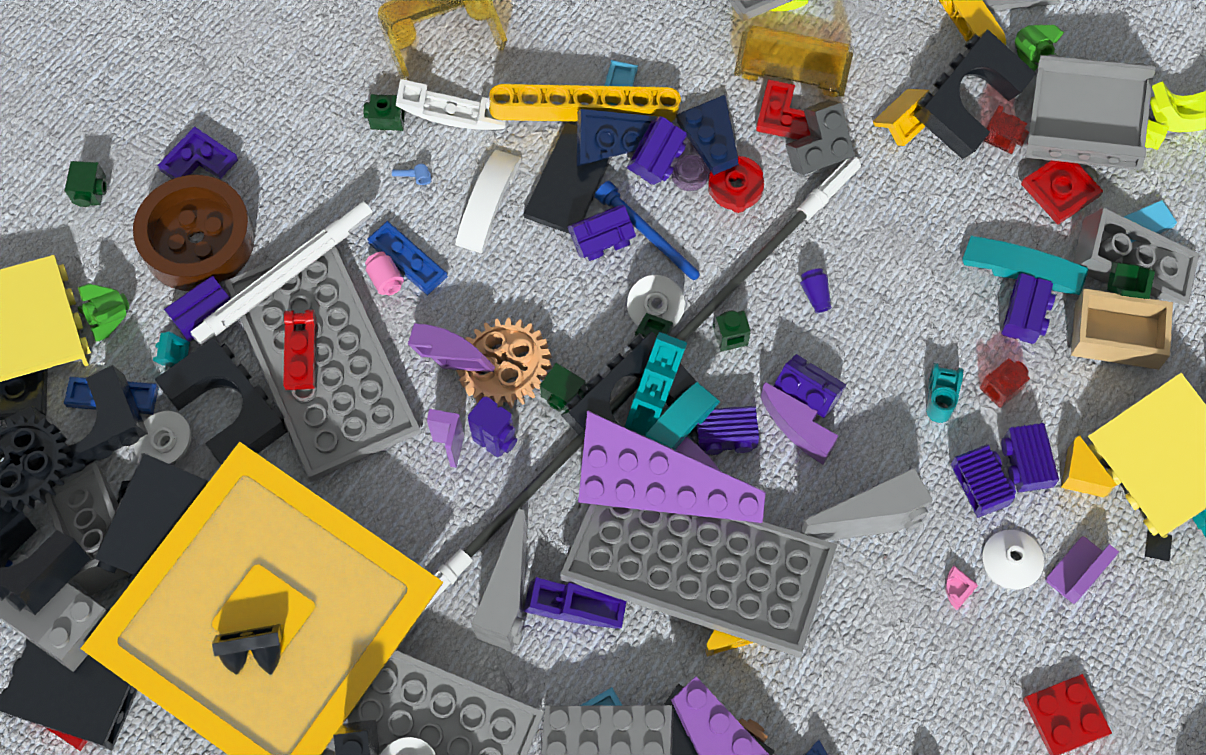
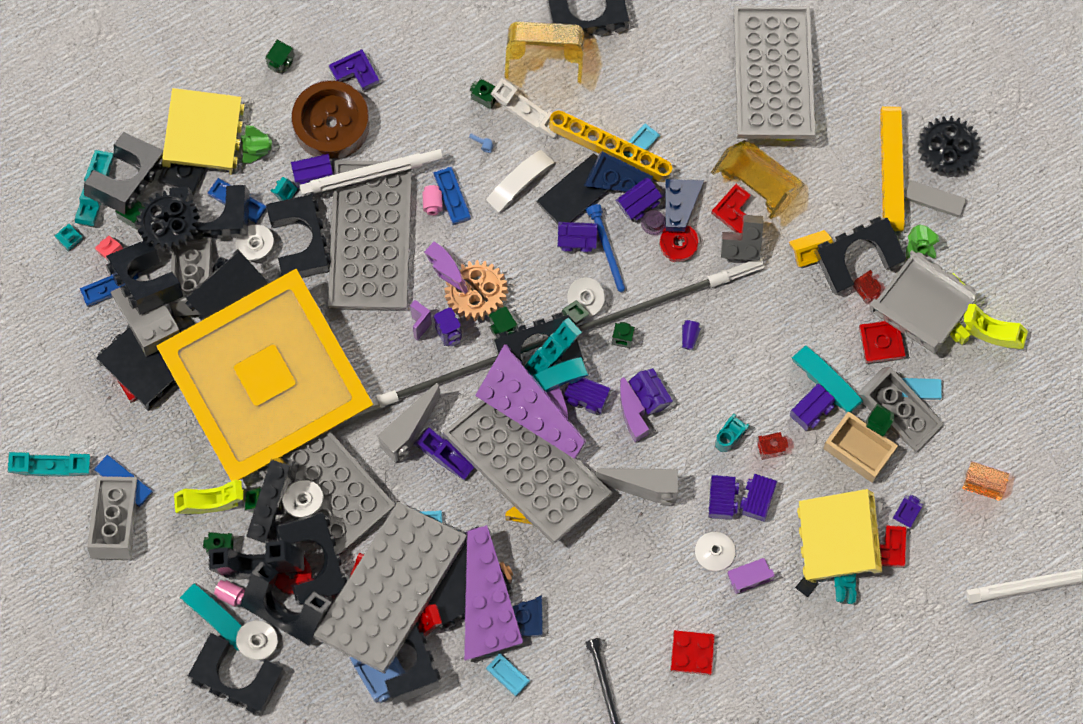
camera: 25 degrees right, 5 degrees up
(262, 641) = (256, 389): black tile -> none
(299, 350) = (358, 225): red plate -> none
(958, 587) = (673, 551): bright pink tile -> none
(1085, 472) = (785, 521): yellow slope -> none

